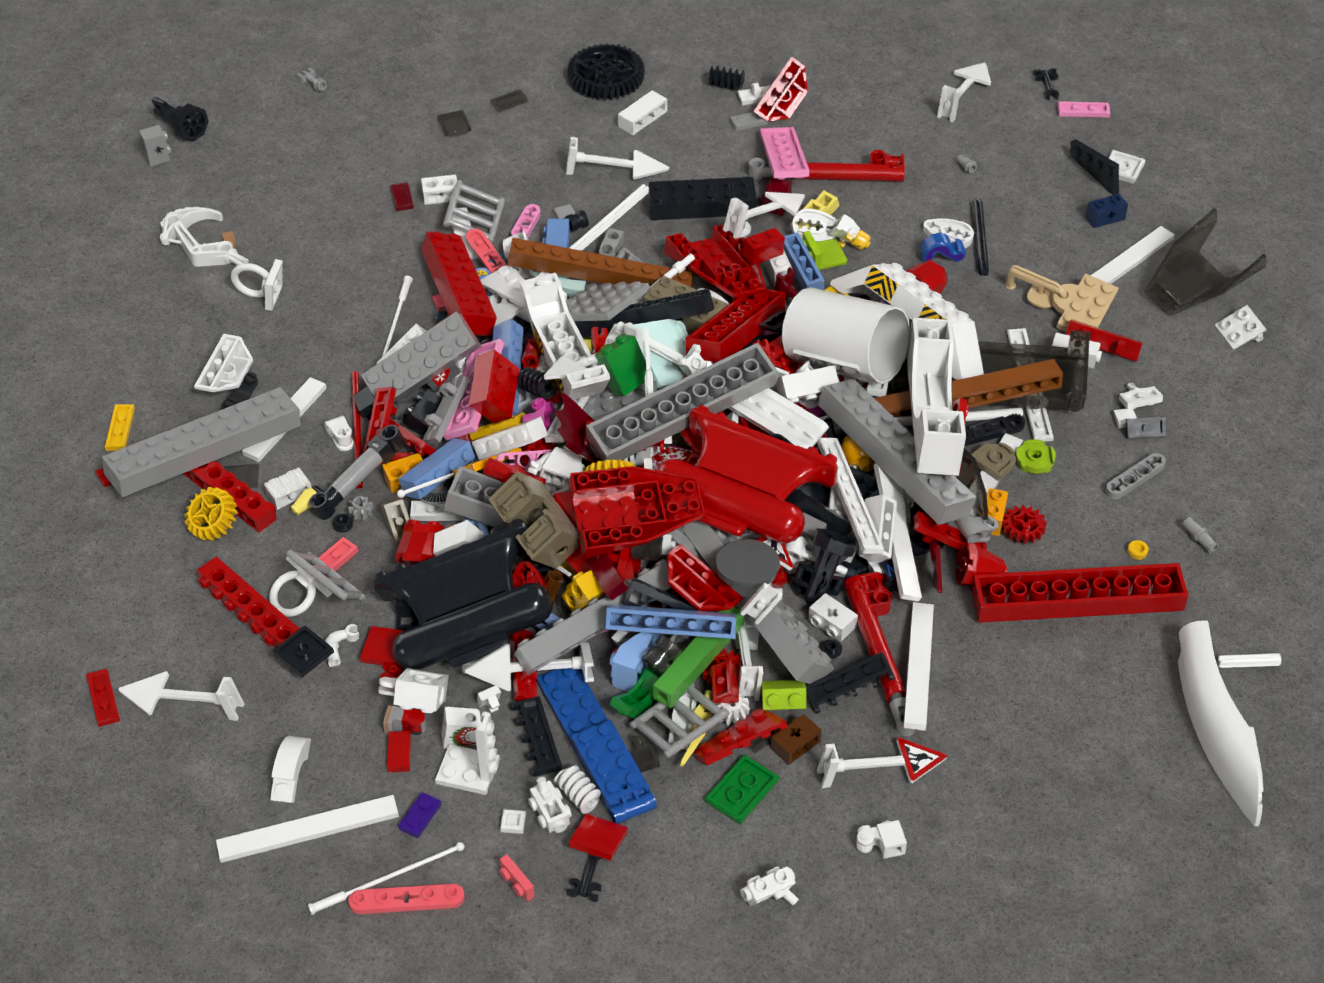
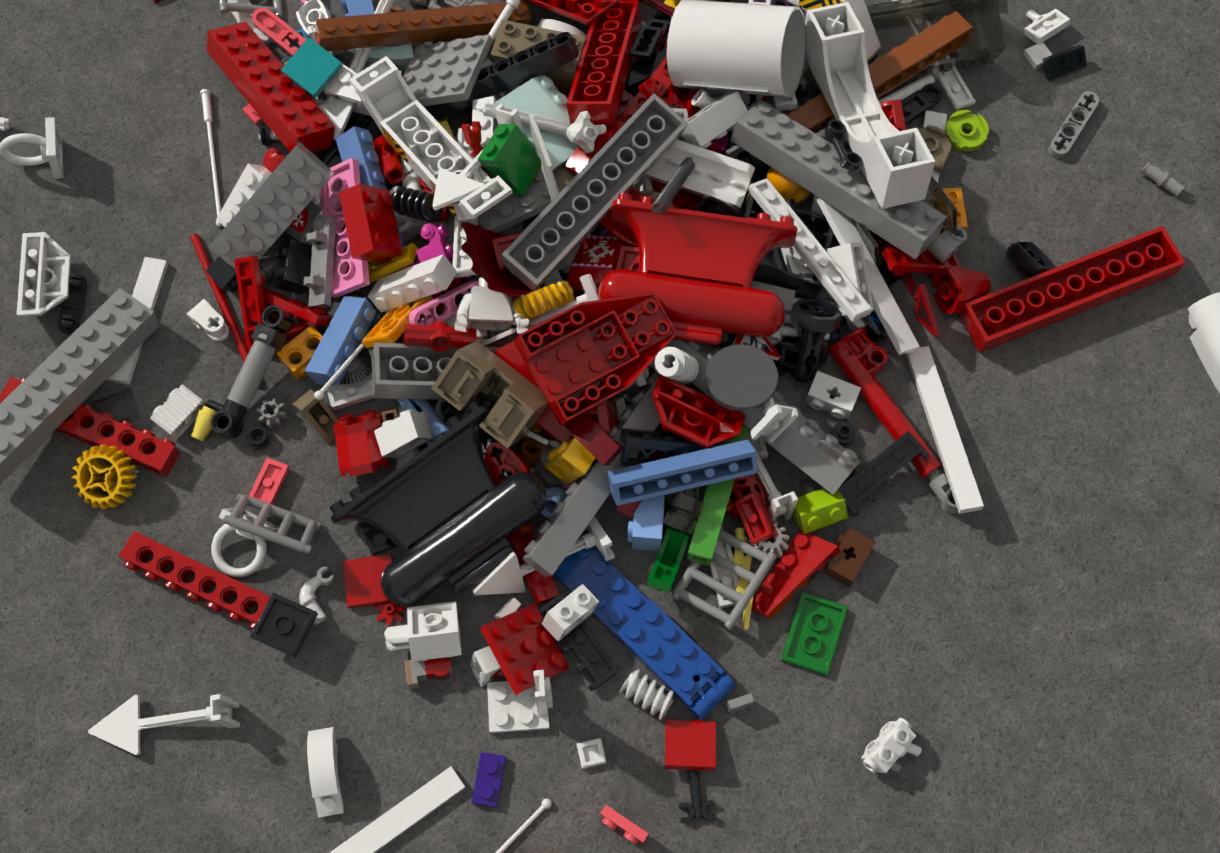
camera: 20 degrees left, 20 degrees up
(103, 697) = (74, 748): red tile -> none
(399, 751) = (435, 708): red tile -> none
(474, 702) = (523, 647): none -> red plate
(496, 272) = (312, 67): none -> teal tile
(537, 706) = (570, 612): none -> white brick
(548, 803) = (619, 719): white brick -> none
(654, 819) = (740, 703): none -> light grey tile
(697, 540) = (677, 365): none -> white piece
(747, 412) = (674, 183): none -> dark grey piece
(886, 836) = (985, 645): white brick -> none
(903, 414) = (833, 133): none -> black bar
(914, 757) = (976, 538): white piece -> none
(1024, 524) = (985, 219): red gear -> none
(1049, 559) = (1029, 258): none -> black piece
(1137, 549) = (1106, 214): yellow tile -> none

